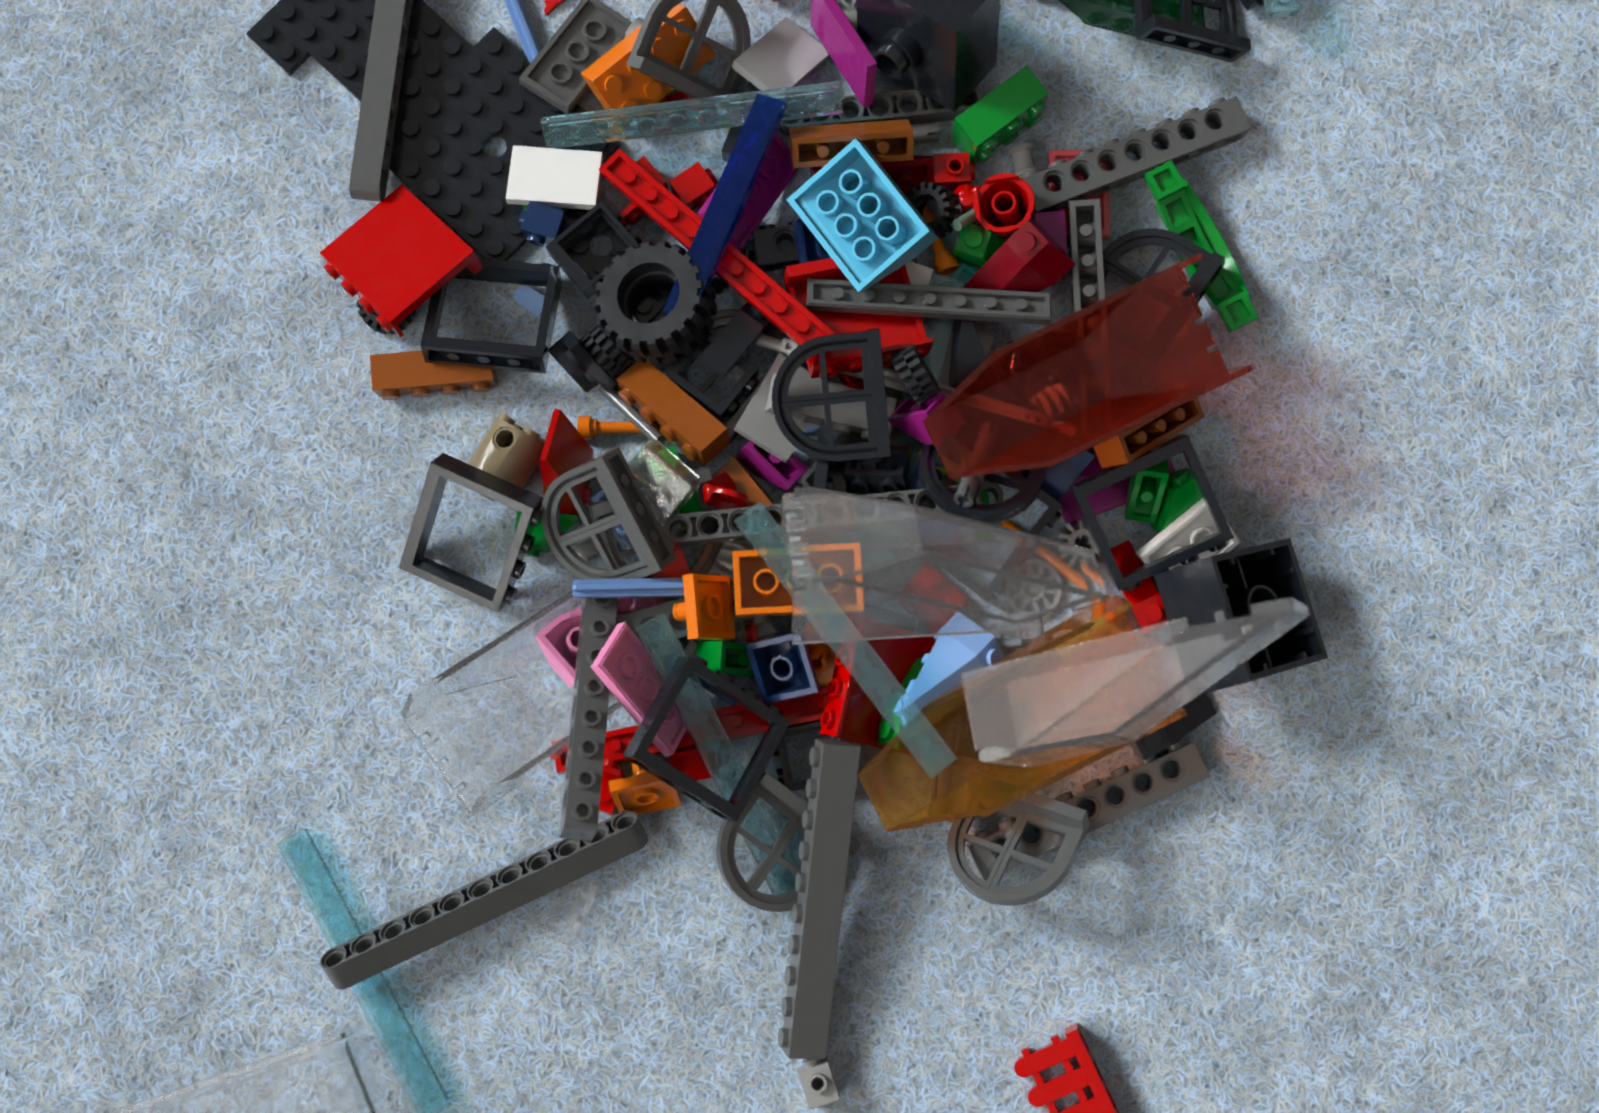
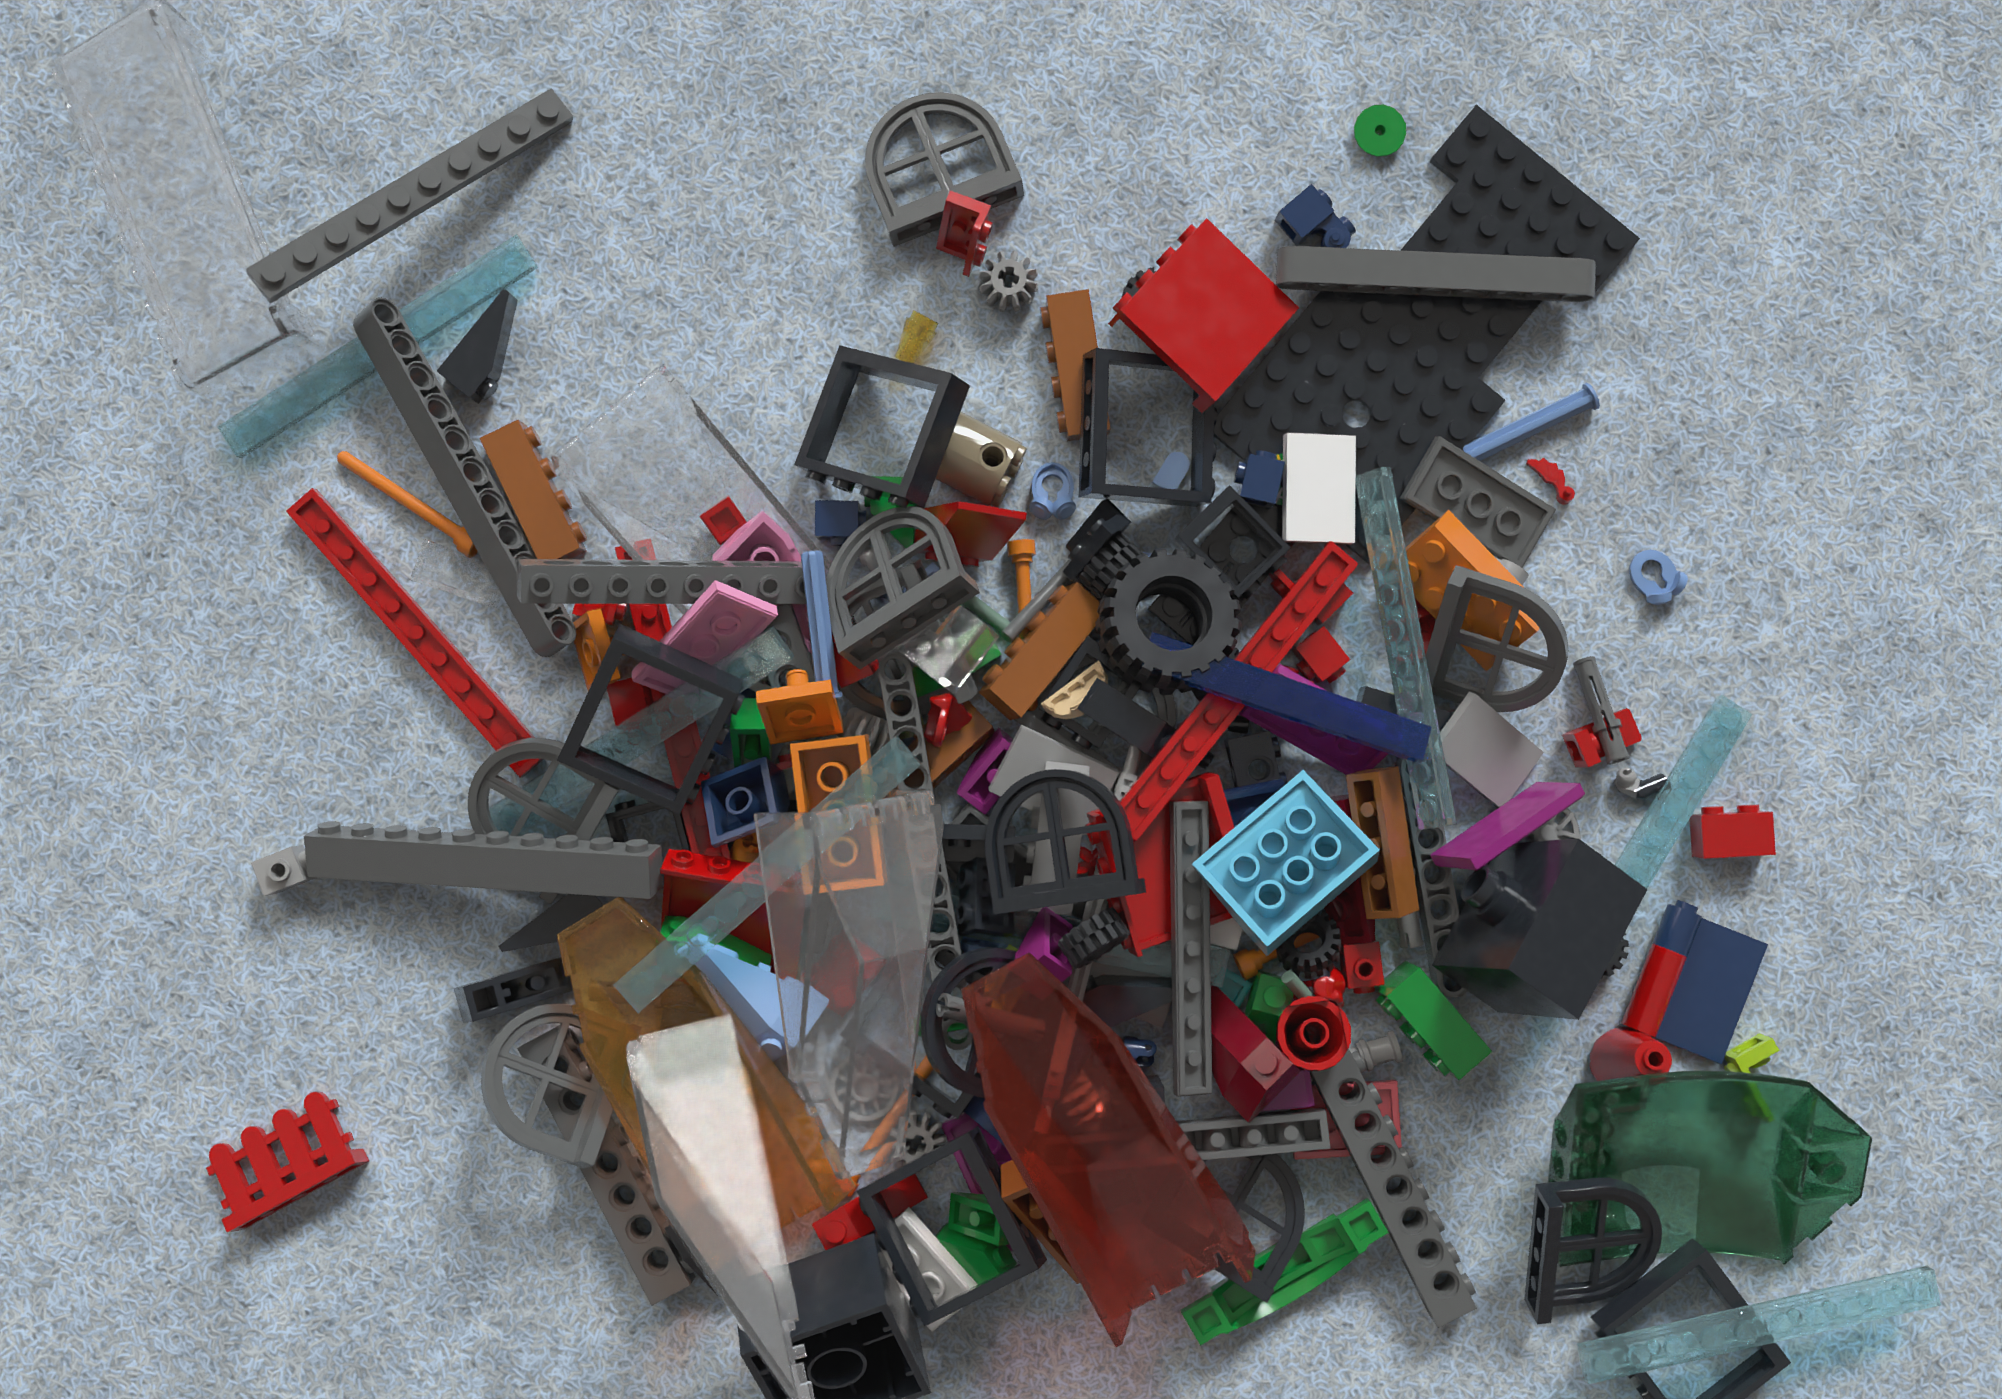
camera: 85 degrees right, 5 degrees up
(233, 931) = (408, 196): none -> dark grey plate
(259, 112) = (1380, 120): none -> green piece
(284, 465) = (926, 213): none -> dark grey window
(309, 455) = (964, 229): none -> red bracket
(325, 168) = (1313, 214): none -> dark blue brick
(354, 413) = (995, 286): none -> light grey gear
(380, 883) = (481, 353): none -> black slope
(396, 504) = (915, 337): none -> clear yellow cone
(503, 842) = (532, 492): none -> dark orange brick
(536, 908) = (458, 533): none -> orange piece
(540, 677) = (723, 519): none -> red tile
(549, 578) = (837, 520): none -> dark blue brick
(550, 389) = (1064, 505): none -> medium blue piece
(609, 959) = (410, 624): none -> red plate
(714, 387) = (1066, 700): none -> tan plate
(876, 840) = (553, 921): none -> black slope
(934, 884) = (512, 990): none -> black slope

